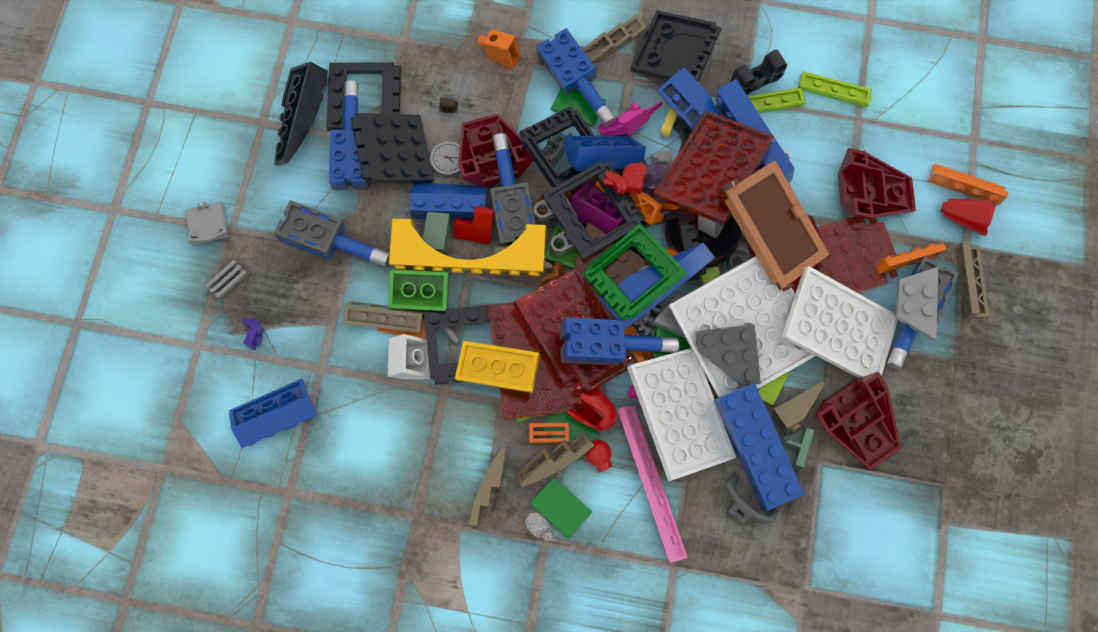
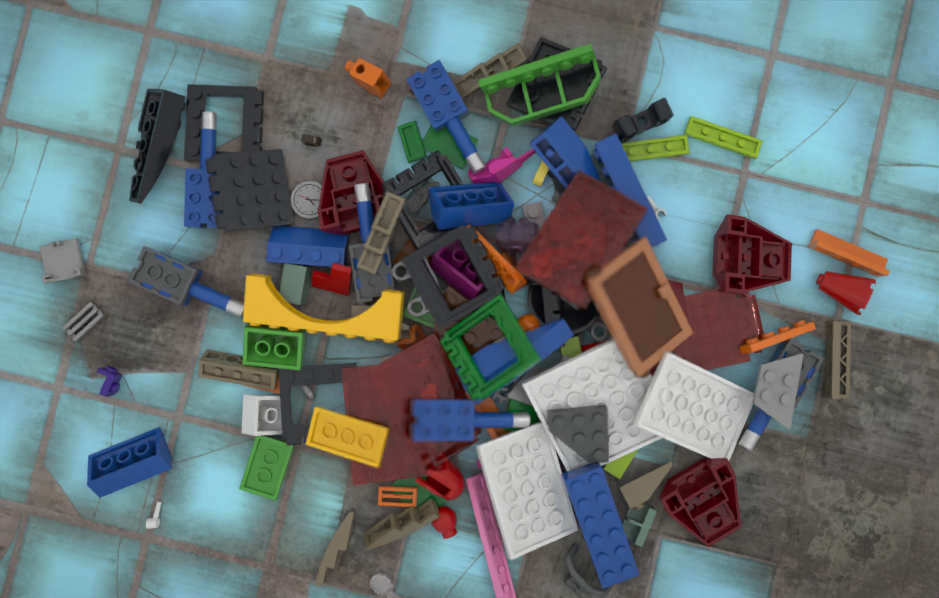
camera: 10 degrees right, 15 degrees up
(297, 474) = (155, 521): none -> white hand
(413, 410) = (266, 467): none -> bright green plate
(521, 174) = (381, 233): none -> dark tan slope
(542, 102) = (412, 141): none -> green tile
(561, 507) = (405, 567): green piece -> none
(631, 179) = (492, 249): red animal -> none
(656, 31) = (541, 68): none -> bright green plate

